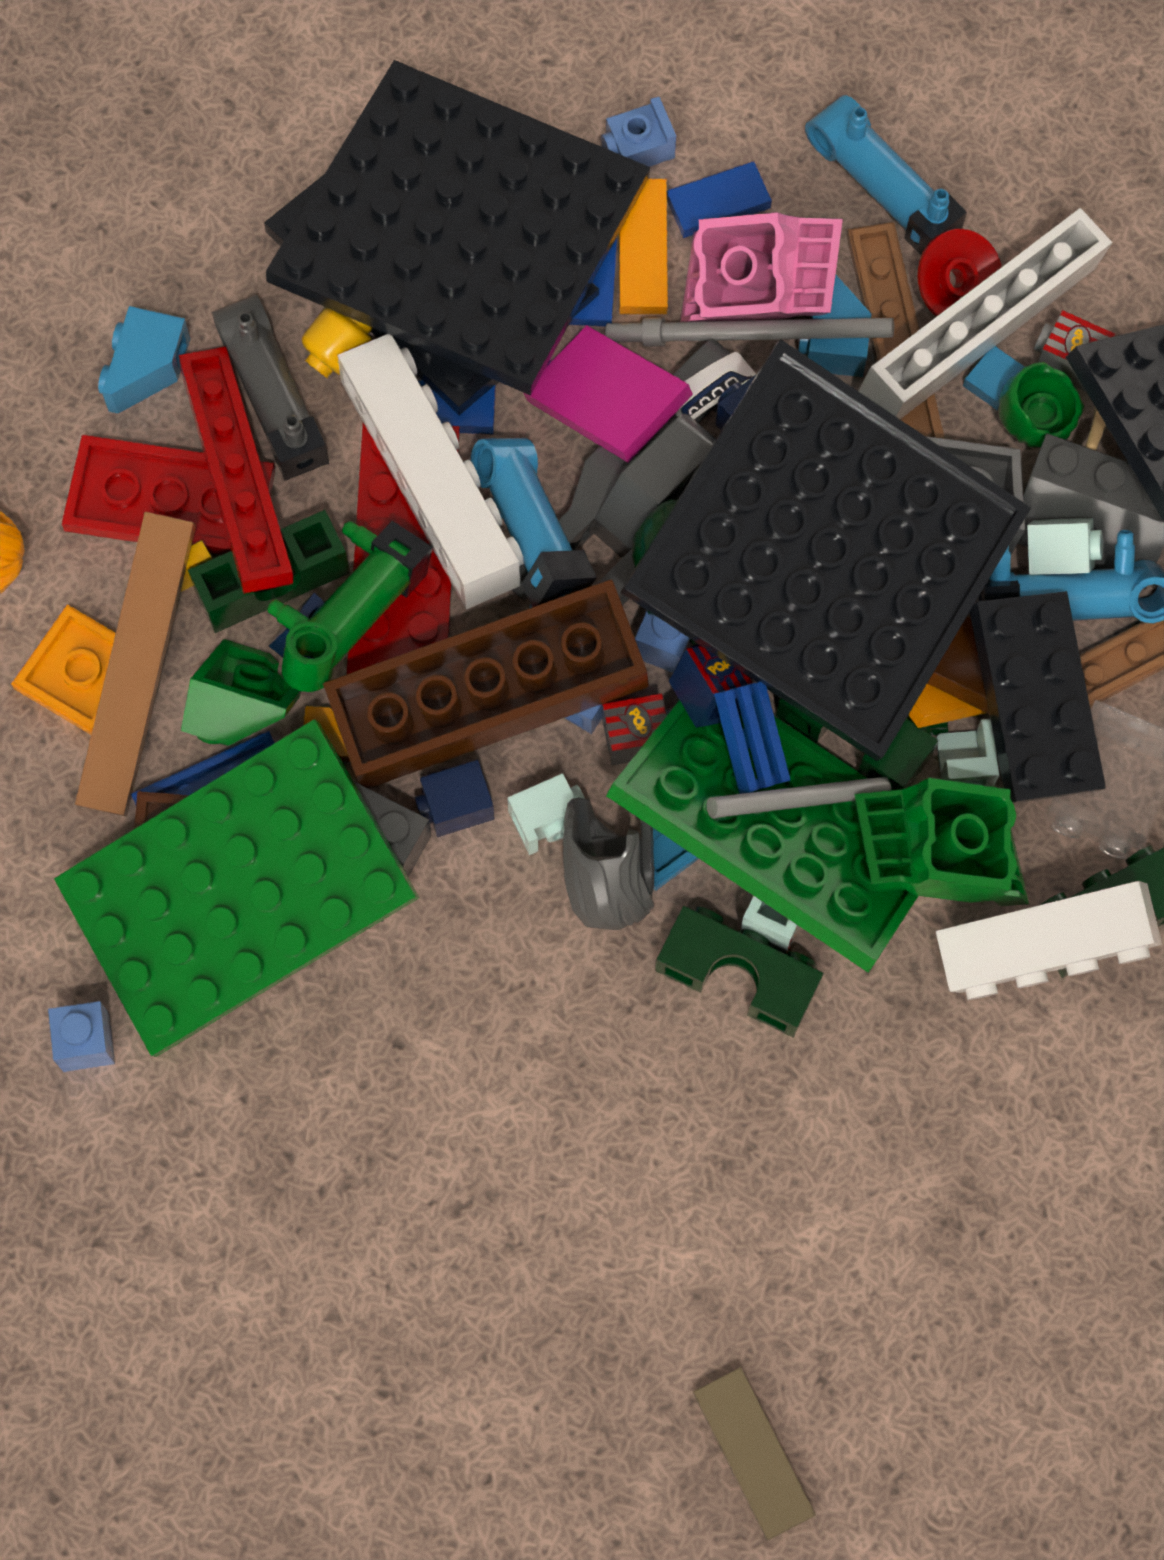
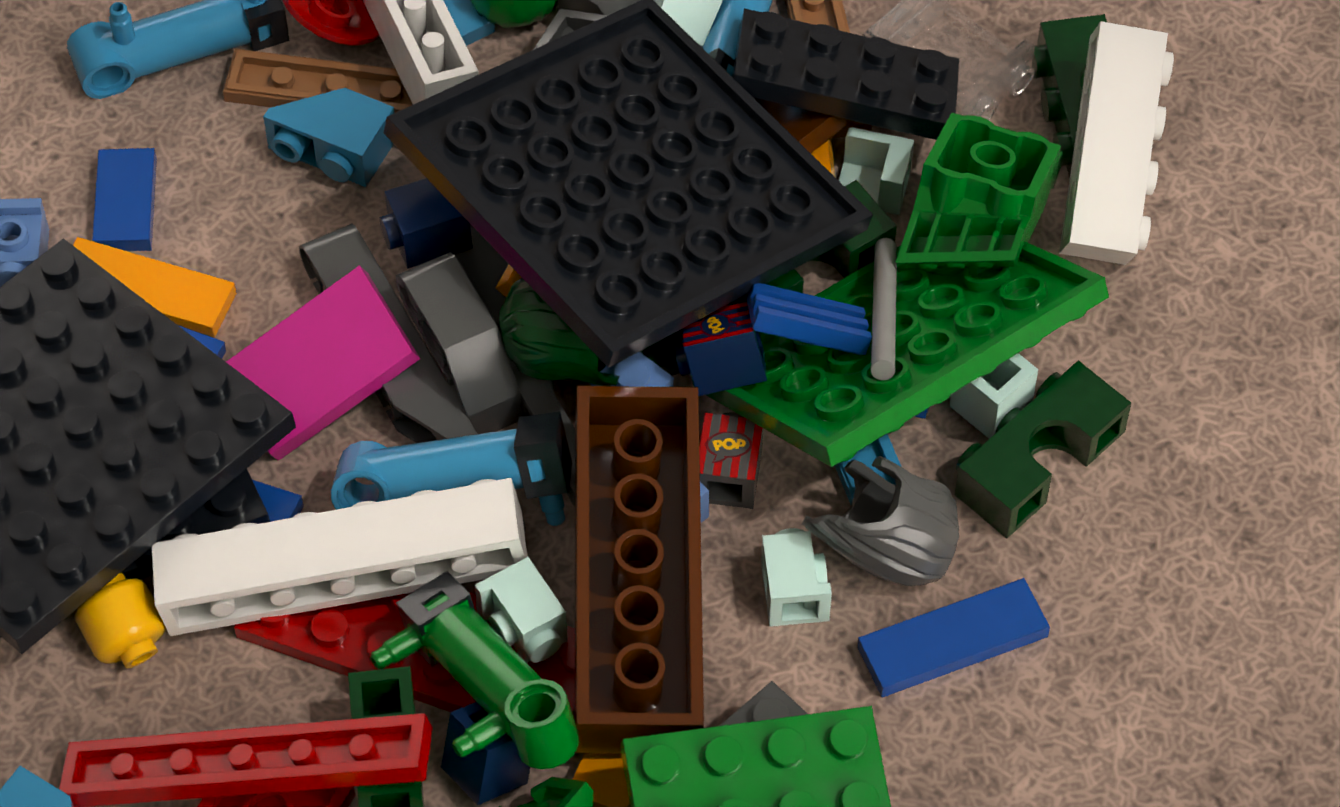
camera: 70 degrees left, 15 degrees down
(270, 387) = (68, 710): dark grey piece -> none
(428, 616) = (523, 611): none -> light aqua brick
(455, 799) = (742, 658): dark blue brick -> none
(543, 954) = (953, 637): none -> blue tile
(656, 331) = (261, 300): light grey bar -> none
(713, 381) = (359, 244): sticker -> none
(761, 268) = (244, 173): bright pink slope -> none

